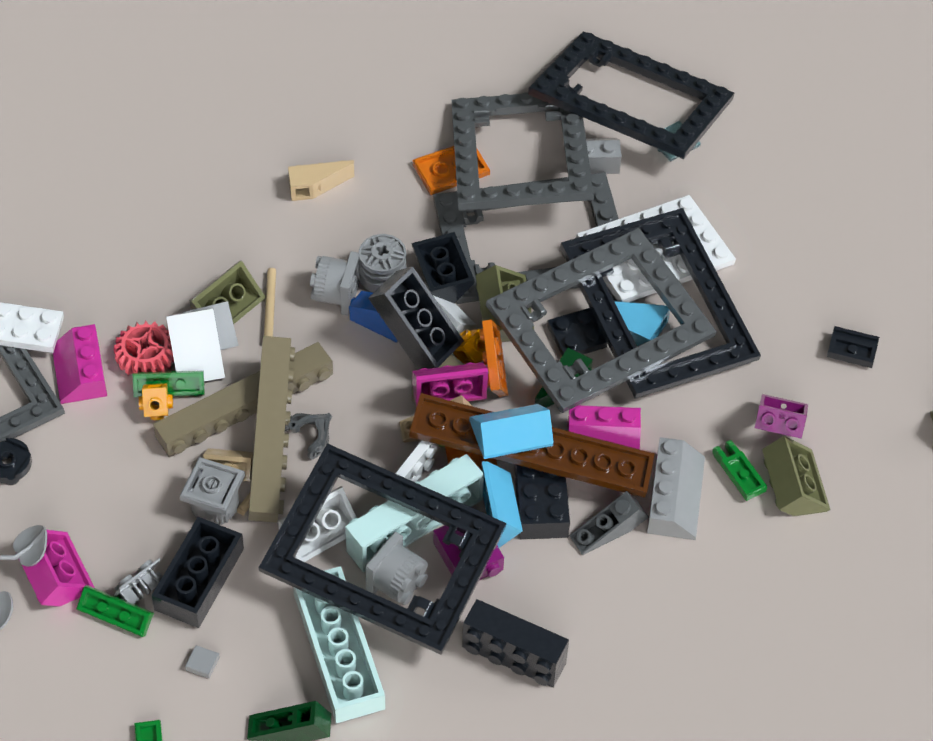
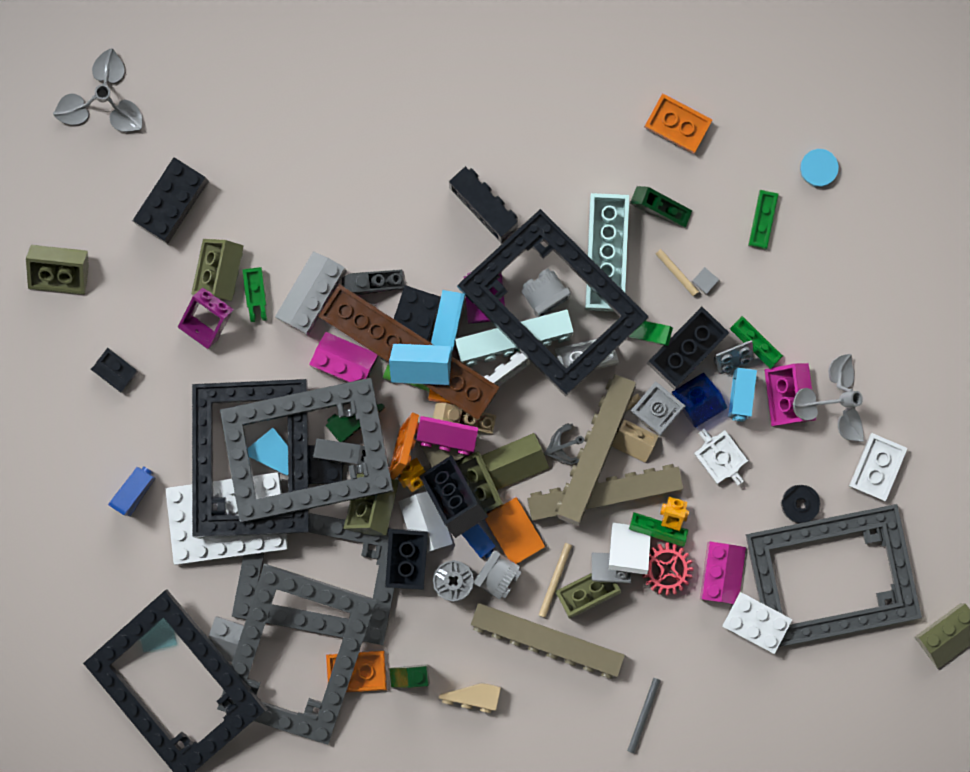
camera: 155 degrees left, 30 degrees up
(113, 541) = (742, 394): none -> medium azure window
(119, 477) = (720, 457): none -> white plate
(125, 217) = (643, 716): none -> dark grey bar
(163, 525) = (700, 399): none -> clear blue slope
(242, 659) = (677, 273): none -> tan bar
(246, 568) = (653, 333): none -> green tile
(253, 247) = (548, 640): none -> dark tan brick
(336, 334) = (514, 531): none -> orange tile
(363, 401) = (515, 461): none -> olive slope
(387, 364) = (480, 481): none -> olive slope
(388, 170) = (409, 676): none -> dark green slope
(565, 335) = (339, 452): none -> dark grey slope
(769, 237) = (132, 491): none -> slope
(889, 530) = (170, 200): none -> black brick

